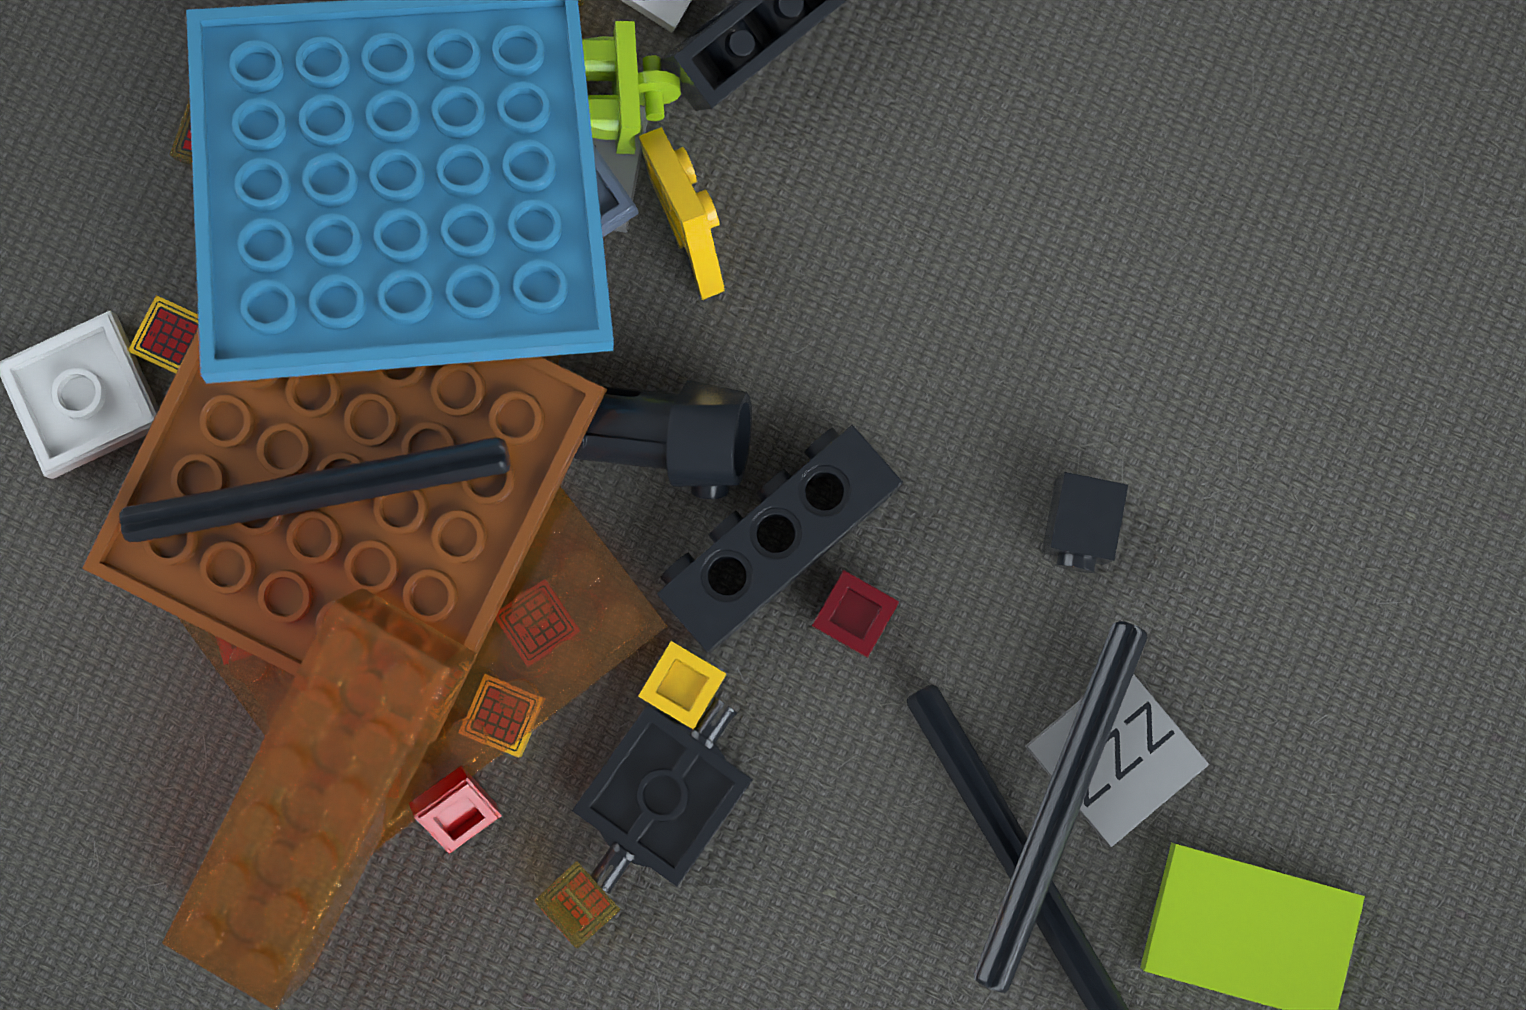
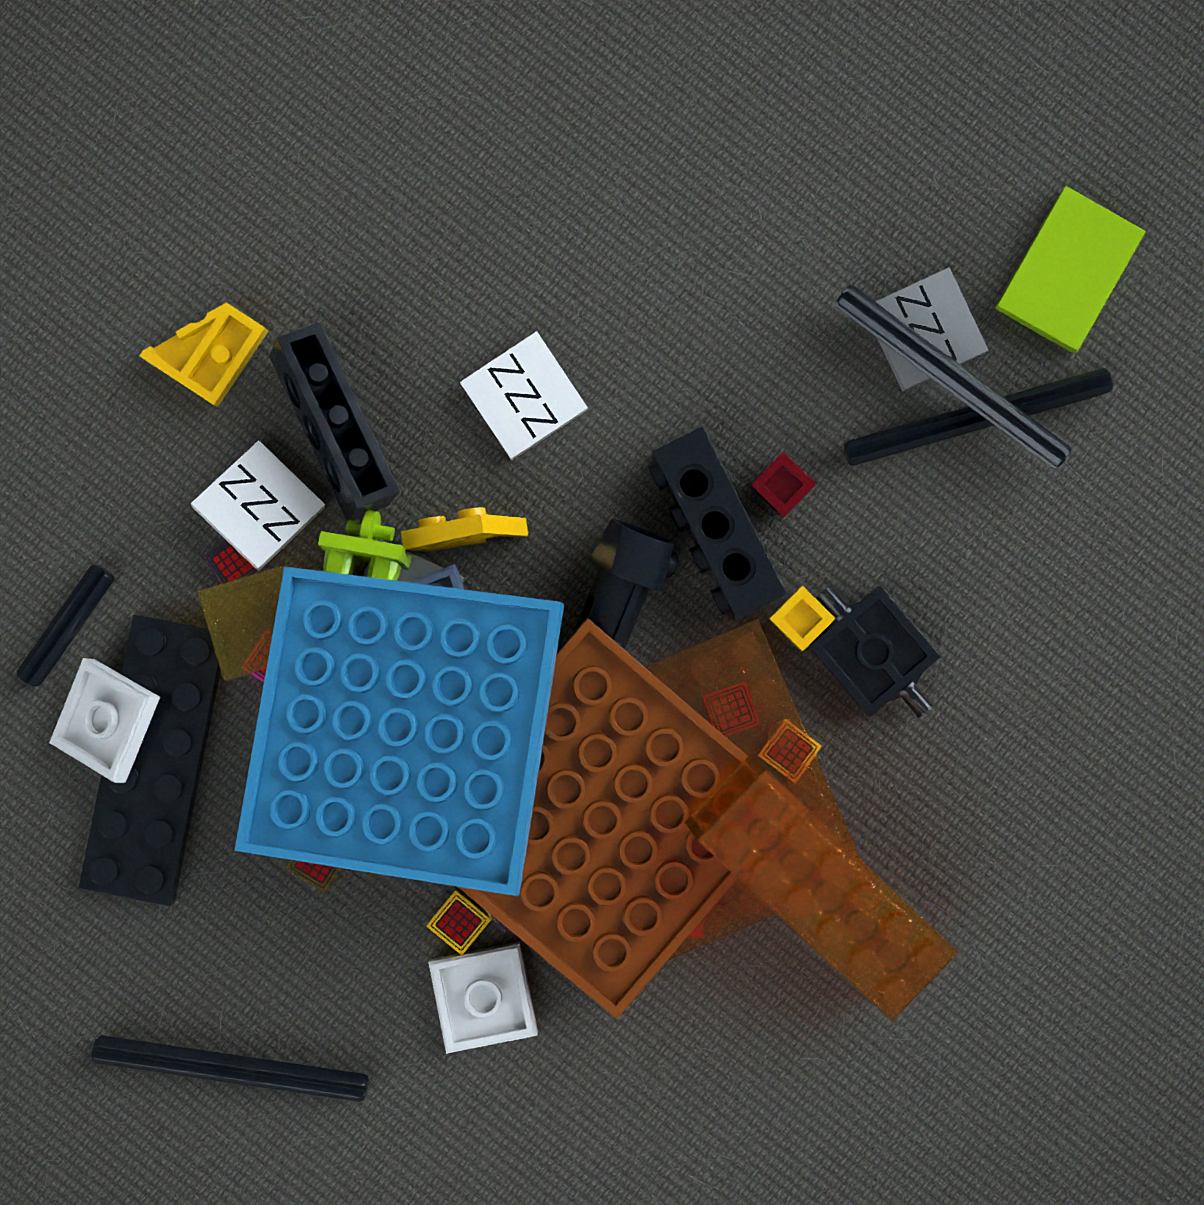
camera: 85 degrees left, 5 degrees up
(315, 490) = (608, 839): black axle -> none
(455, 809) = (847, 798): tile -> none
(577, 905) = (935, 729): clear yellow tile -> none
(883, 246) = (524, 395): none -> white tile
(1084, 521) = (760, 307): black brick -> none

